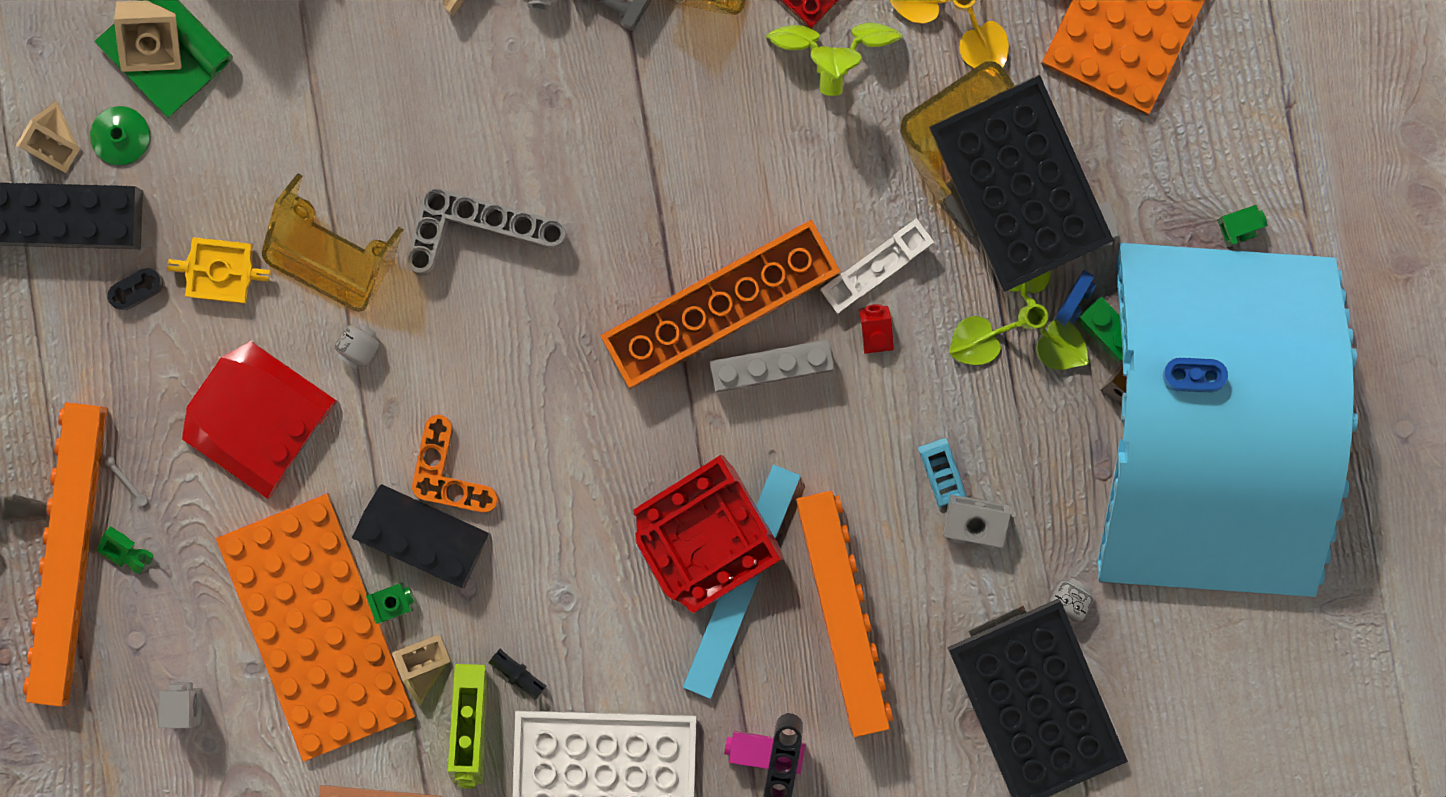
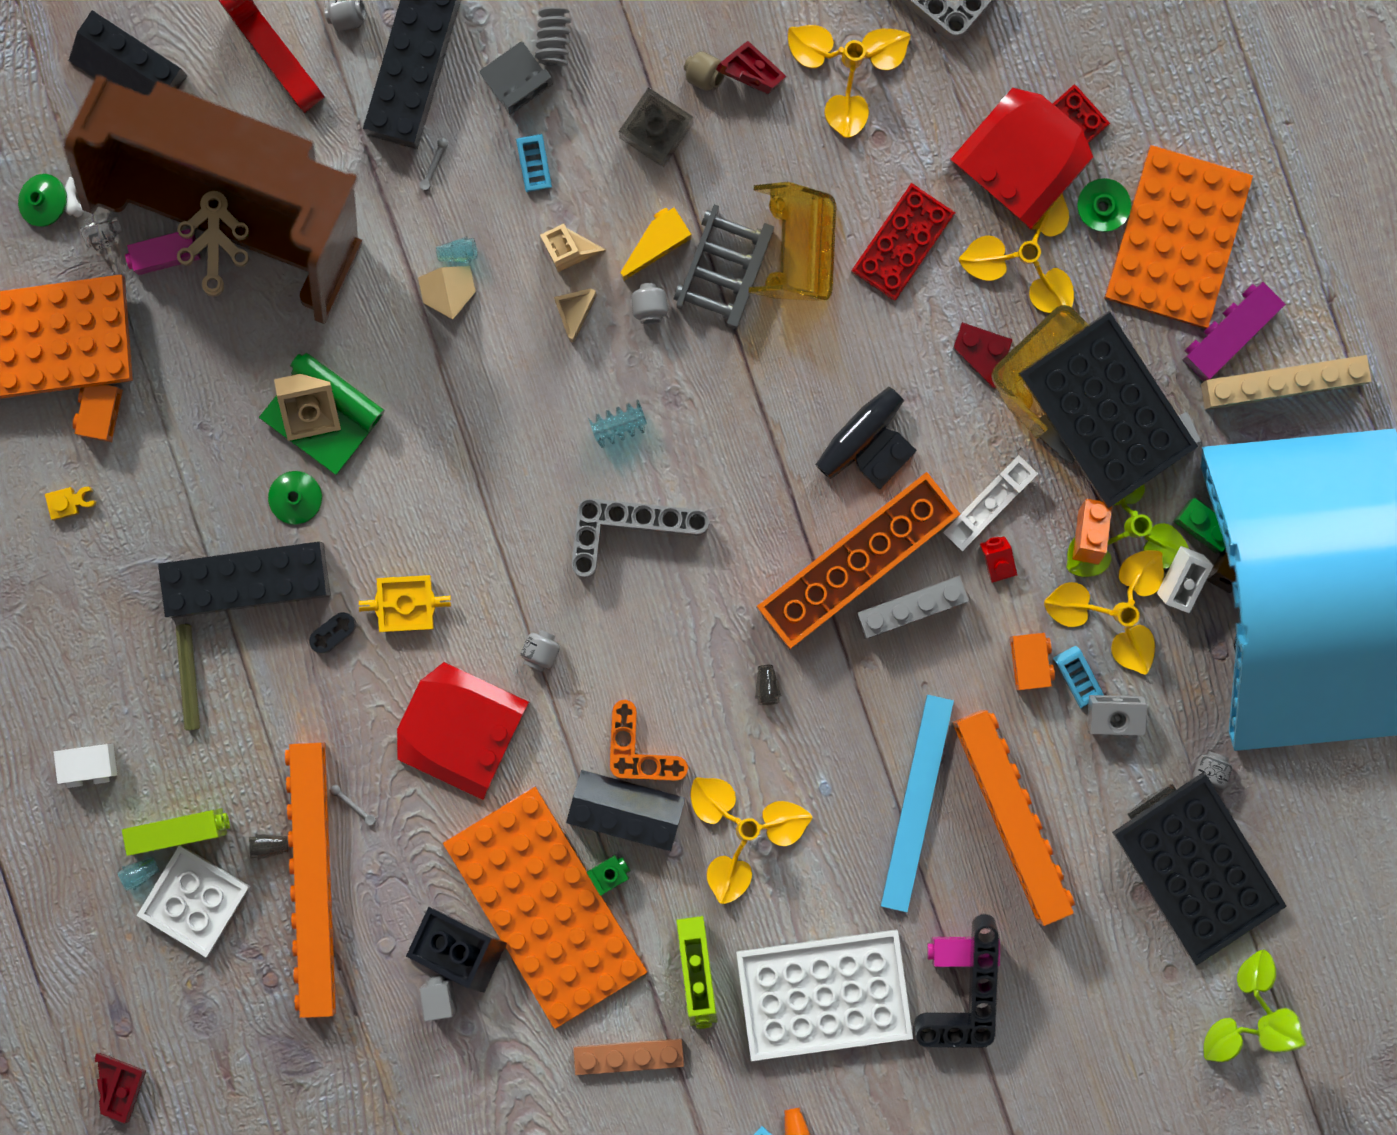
camera: 15 degrees left, 0 degrees up
(50, 138) = (235, 511): tan slope -> none
(120, 551) = (359, 868): green plate -> none
(210, 657) = (456, 950): none -> black slope
(322, 257) = (496, 577): clear yellow windscreen -> none
(421, 665) = (645, 925): tan slope -> none
(484, 113) = (618, 424): none -> clear light blue piece
(517, 674) = (732, 919): black pin -> none
(591, 579) = (784, 826): none -> yellow plant
(599, 427) = (767, 686): none -> clear smoke cone
(704, 536) = (878, 769): red wedge -> none
(753, 175) = (867, 441): none -> black plate
(833, 62) = (923, 330): lime plant -> none
(893, 446) = (1031, 661): none -> orange brick
(895, 95) = (981, 349): none -> dark red wing
(982, 315) = (1092, 532): none -> orange brick
(1004, 451) = (1135, 646): none -> yellow plant
(1075, 384) = (1185, 579): none -> white brick
(1082, 288) = (1175, 492): blue plate -> none
(1176, 122) = (1233, 332): none -> magenta brick
(1194, 374) = (1295, 556): blue plate -> none
(1223, 187) = (1285, 382): none -> tan brick
(1242, 225) = (1307, 412): green brick -> none

